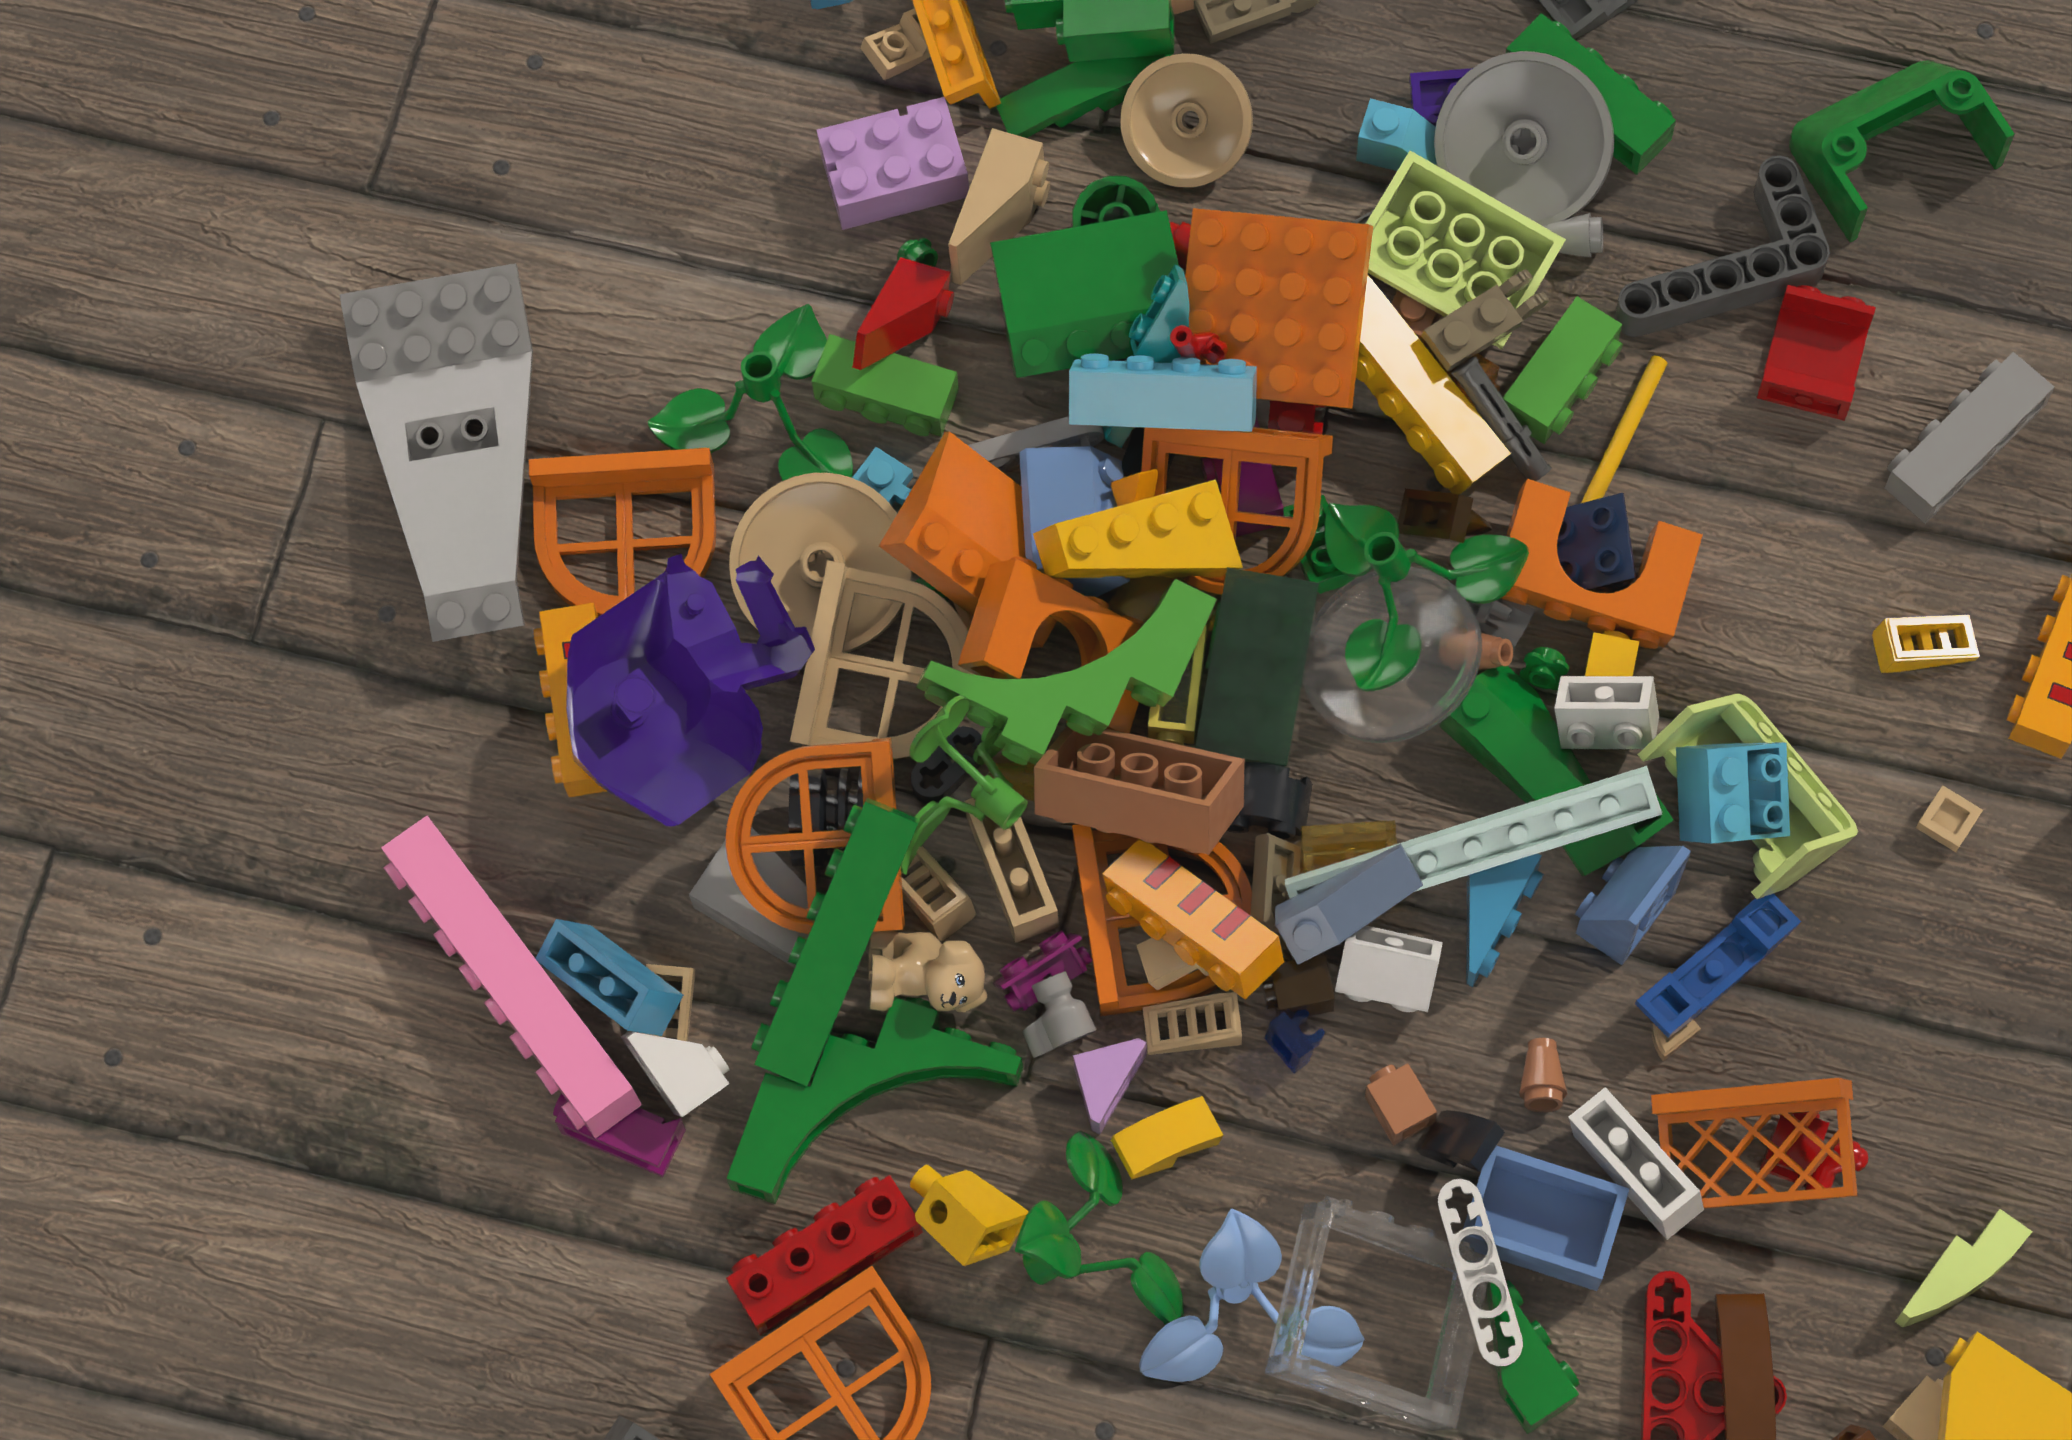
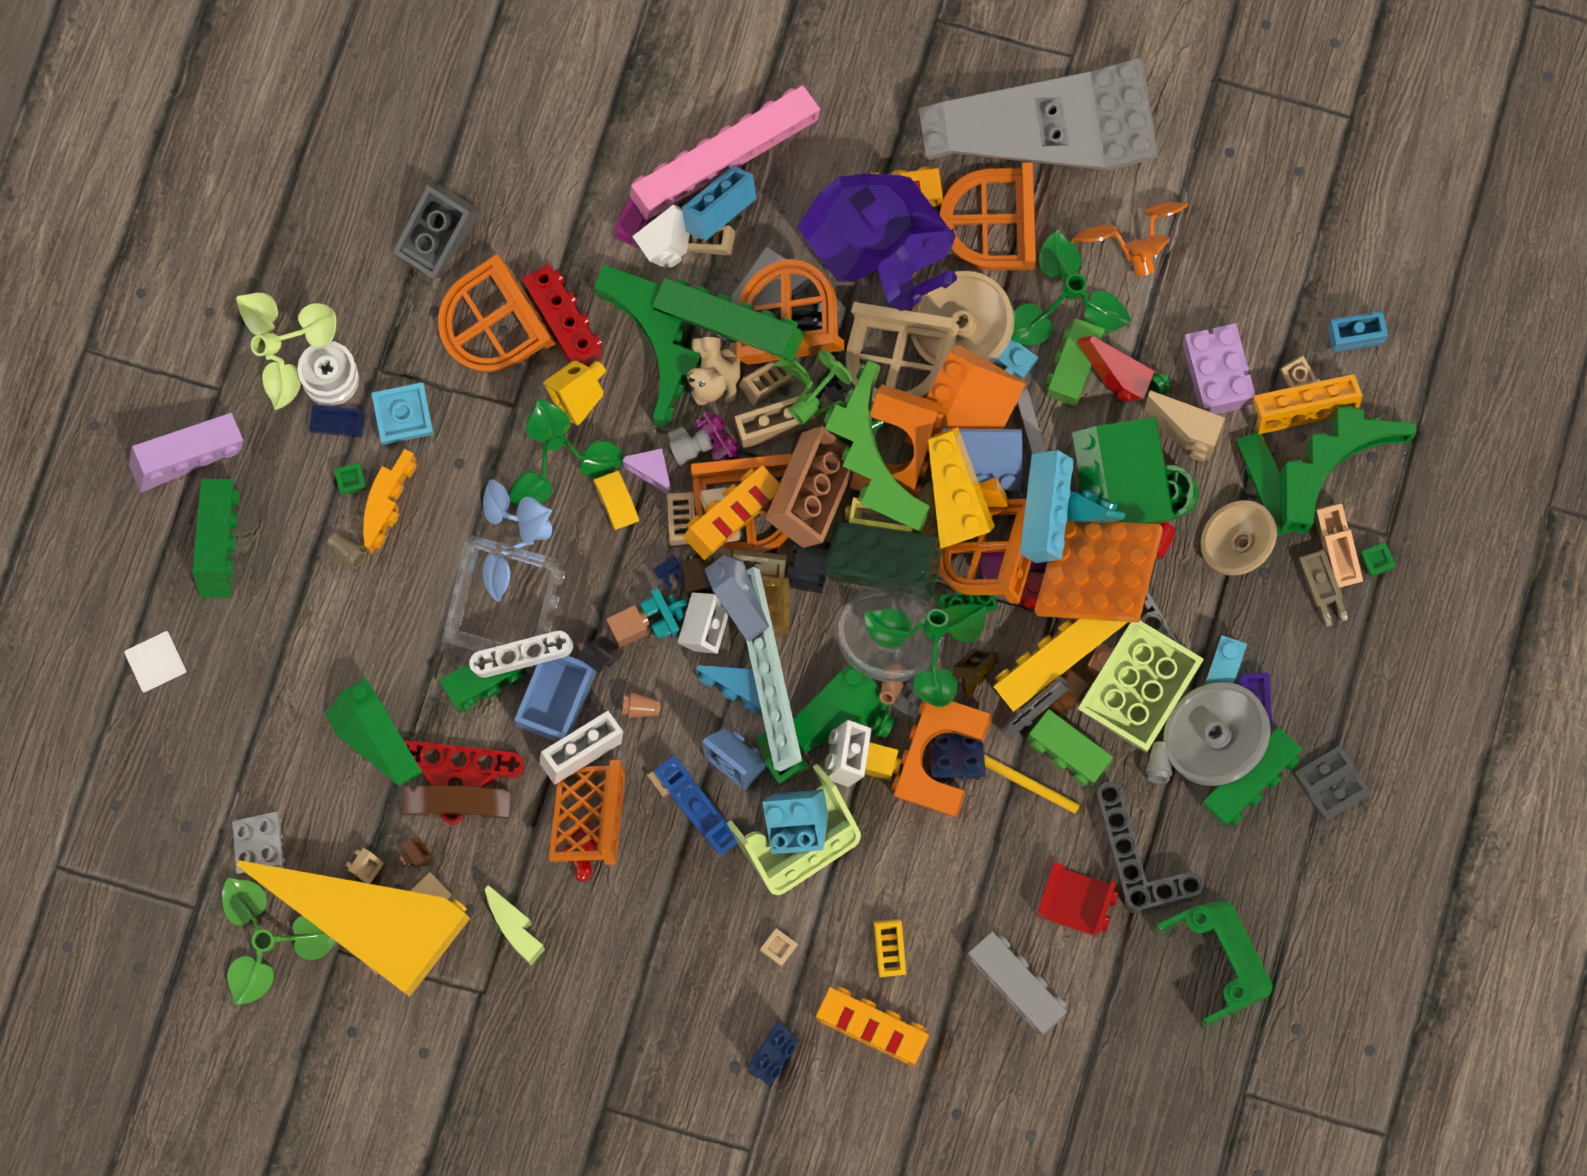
camera: 90 degrees right, 5 degrees up
(691, 248) = (1142, 248): none -> orange plant
(1198, 345) = (1074, 525): red arm -> none
(1355, 1053) = (667, 625): none -> teal hips
(1481, 322) = (1090, 693): dark tan hinge -> none

